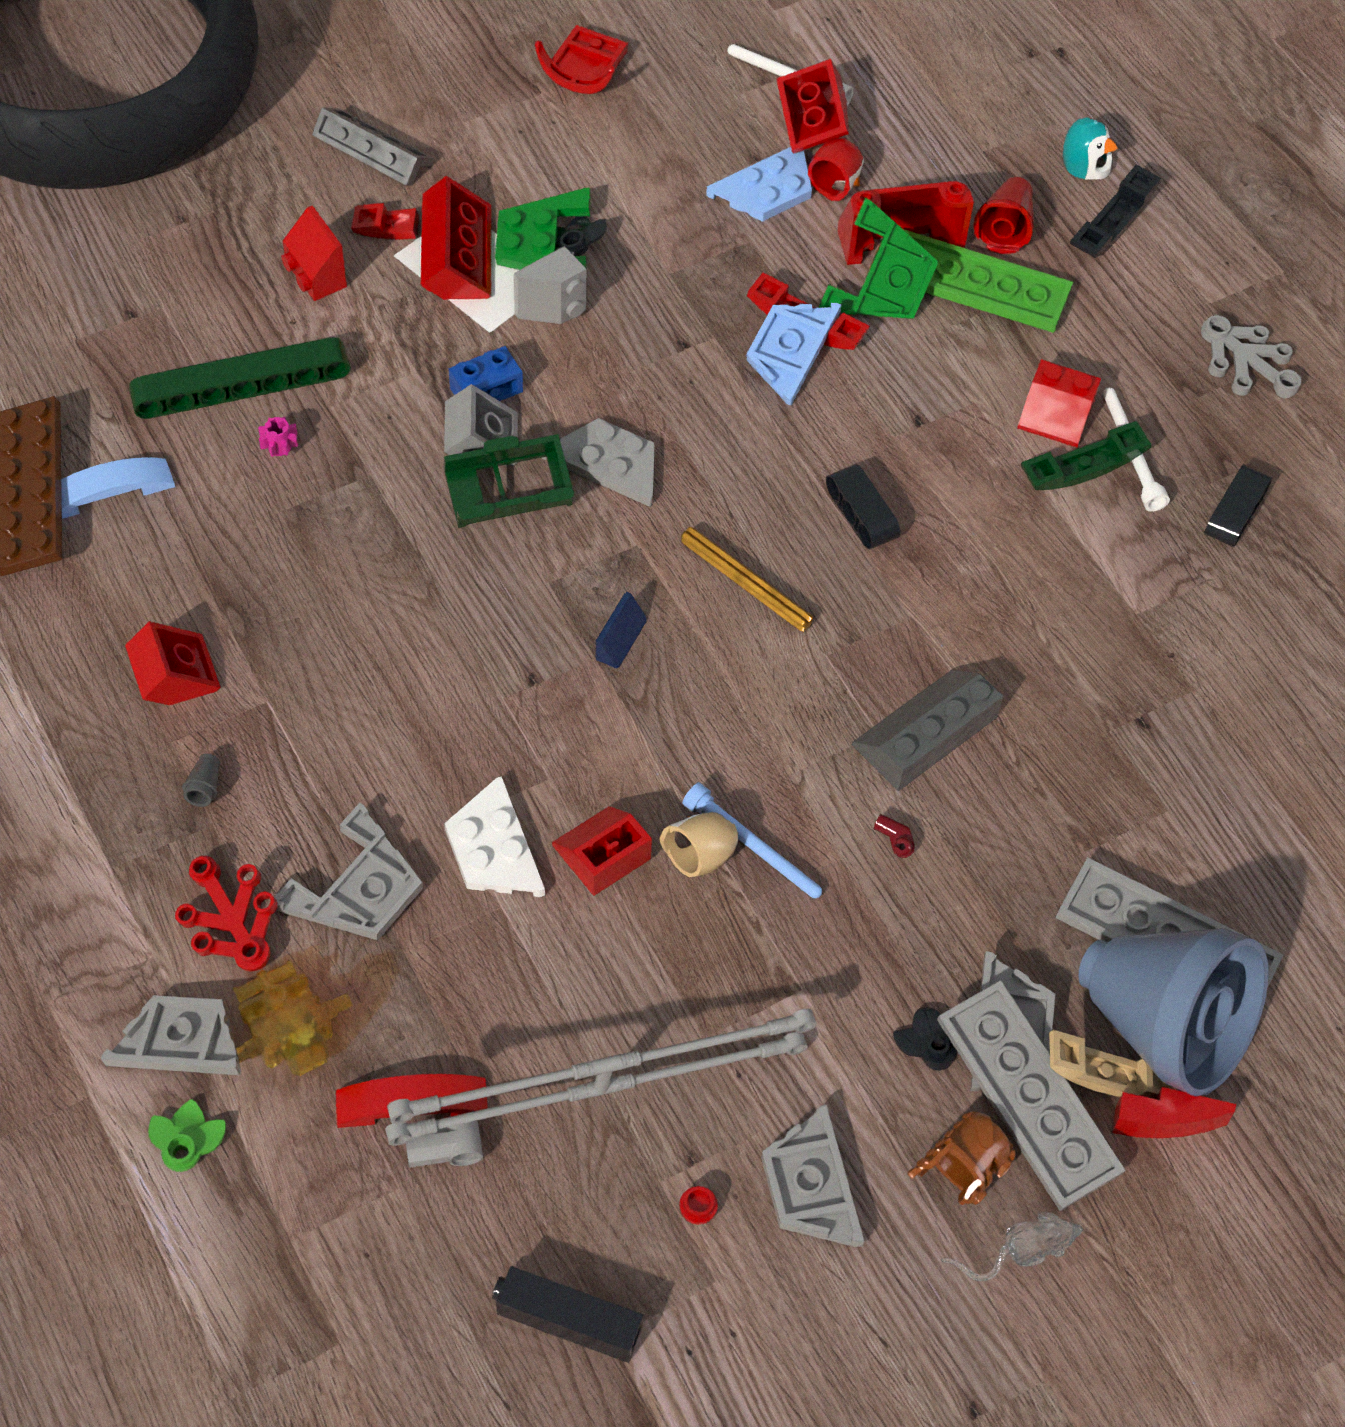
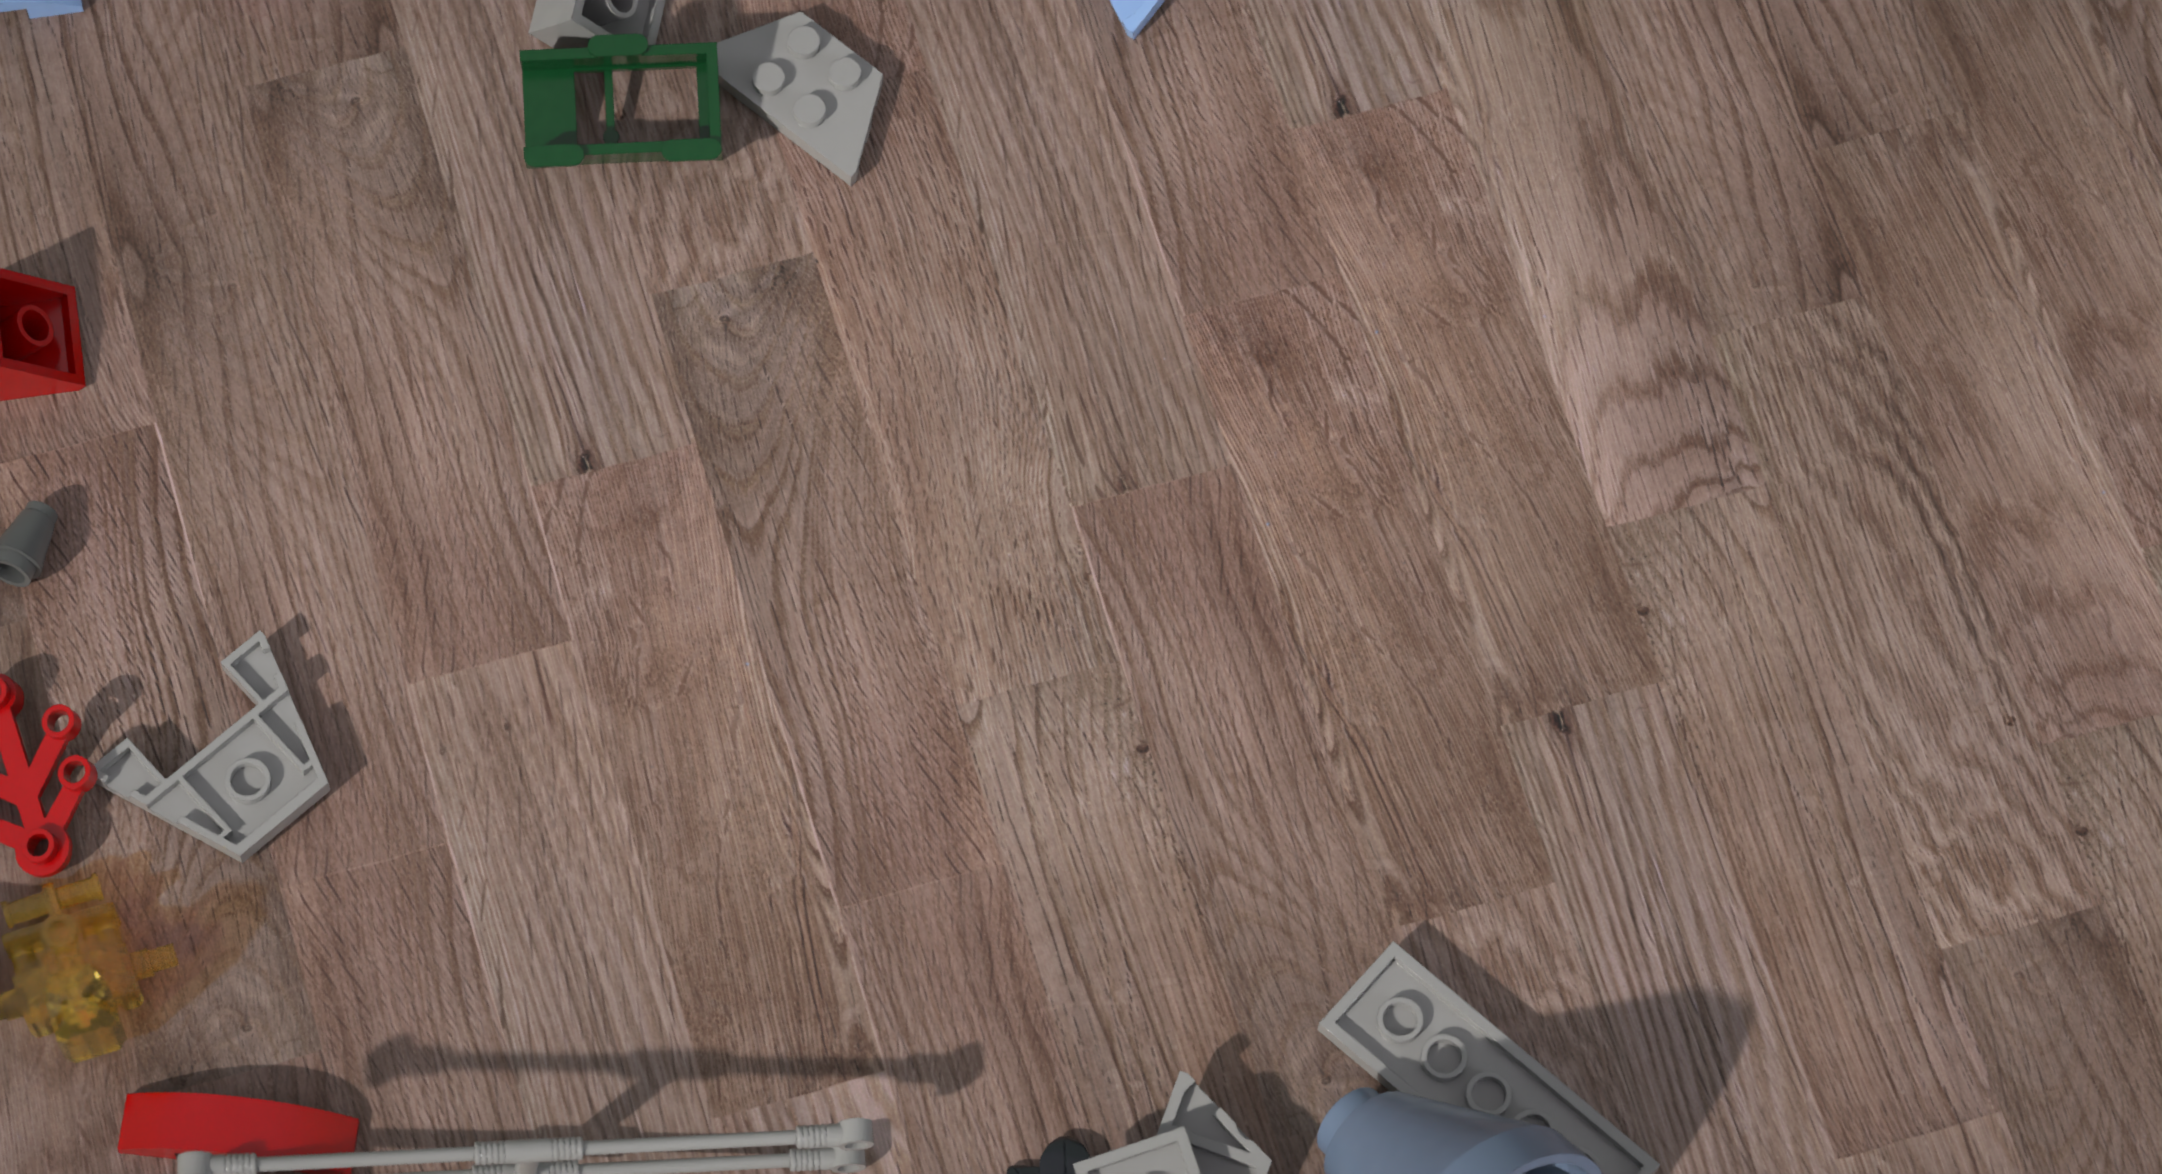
camera: 10 degrees right, 10 degrees up
(492, 844) = (455, 736): white wing -> none
(605, 848) = (626, 779): red slope -> none
(620, 632) = (744, 407): dark blue slope -> none
(699, 800) = (801, 725): light blue piece -> none
(711, 845) = (790, 802): tan piece -> none
(747, 579) = (975, 349): pearl gold axle -> none
(863, 506) = (1199, 253): black beam -> none
(899, 835) = (1105, 843): dark red arm -> none
(929, 726) = (1203, 666): dark grey slope -> none
(1059, 403) = (1584, 122): slope -> none
(1087, 462) = (1600, 237): dark green slope -> none
(1153, 494) = (1697, 320): white piece -> none
(1220, 333) = (1941, 81): light grey plant -> none
(1238, 505) = (1834, 365): black beam -> none

